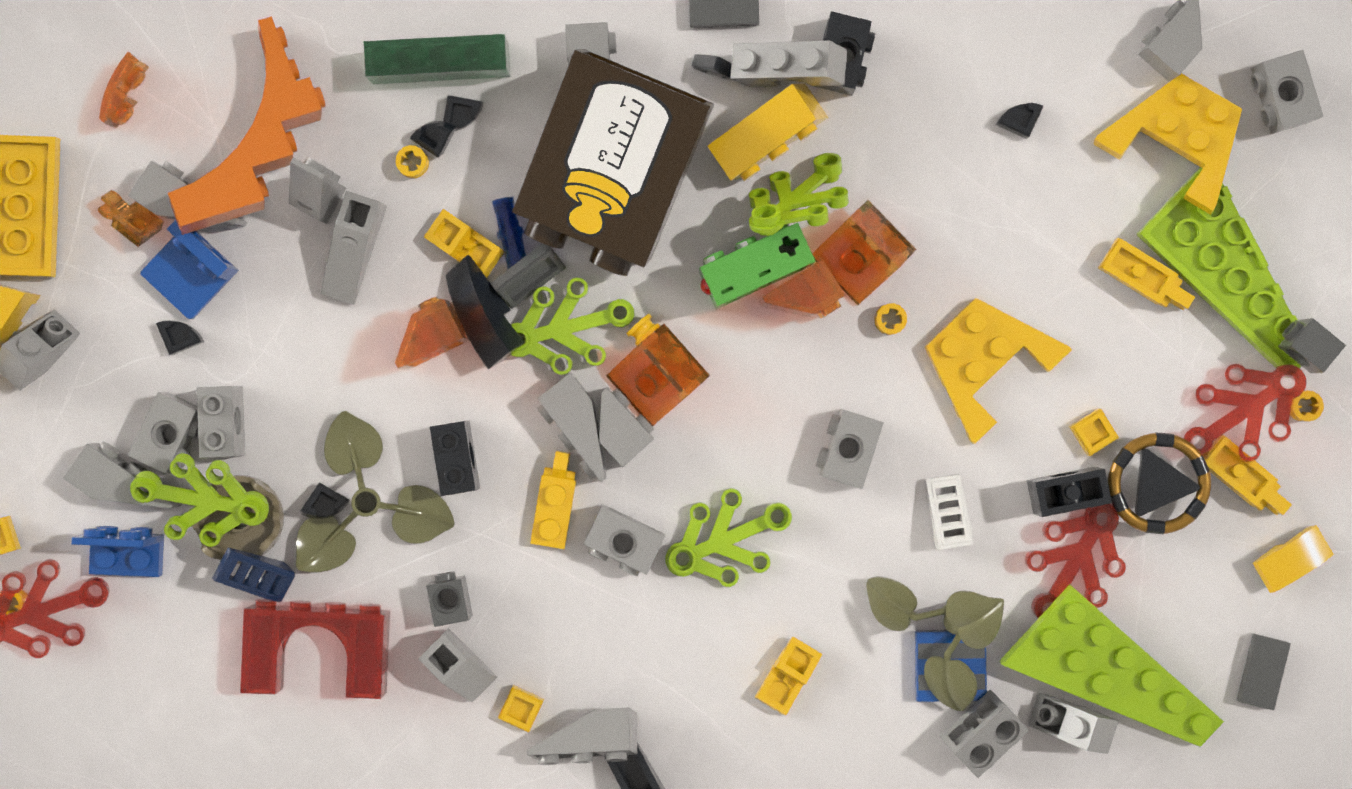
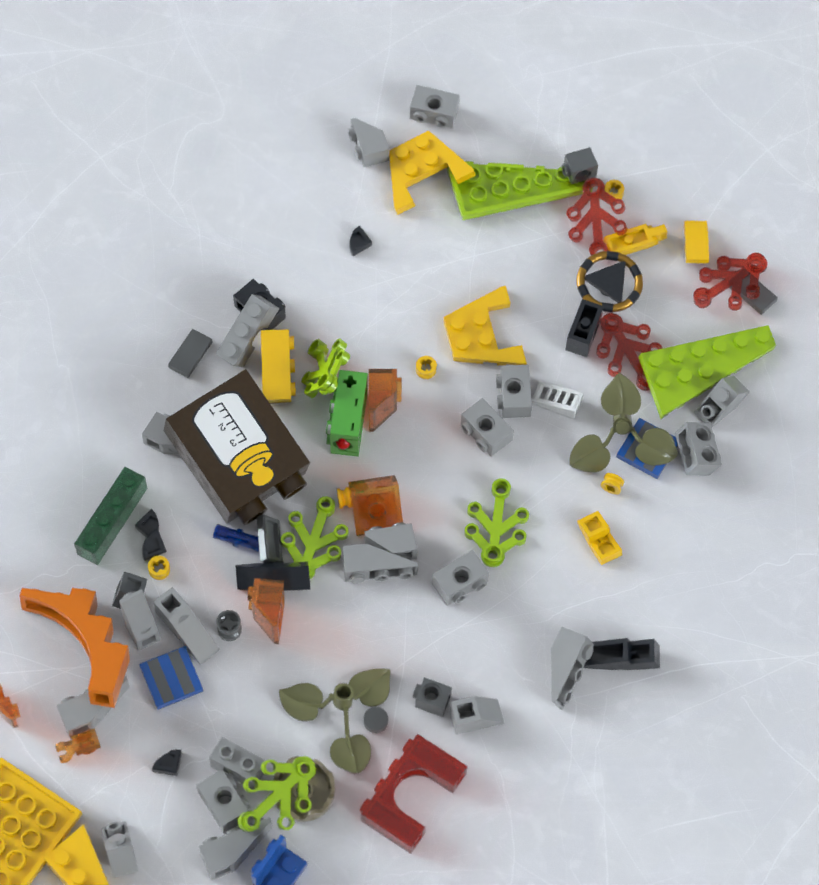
camera: 60 degrees left, 25 degrees down
(188, 271) = (133, 728): blue bracket -> none
(273, 583) = (347, 795): dark blue slope -> none
(283, 270) = (171, 677): none -> tile
(323, 503) = (326, 737): black tile -> none
(349, 150) = (128, 583): none -> dark grey brick
(382, 547) = (375, 719): none -> dark grey tile
(383, 293) = (228, 620): none -> dark grey wheel
(455, 458) = (349, 642): black brick -> none
(461, 240) = (222, 569): yellow slope -> none
(521, 708) = (525, 698): yellow tile -> none
(554, 503) = (413, 606): yellow hinge -> none
(712, 63) = (218, 373): black tile -> none
(864, 252) = (379, 351): clear orange slope -> none
(870, 651) = (612, 483): none -> yellow bush
(944, 452) = (516, 378): none -> light grey brick
(1094, 432) = (560, 301): yellow tile -> none
(1145, 275) = (488, 227): yellow hinge -> none
(1265, 638) = (753, 265): none -> clear red plant

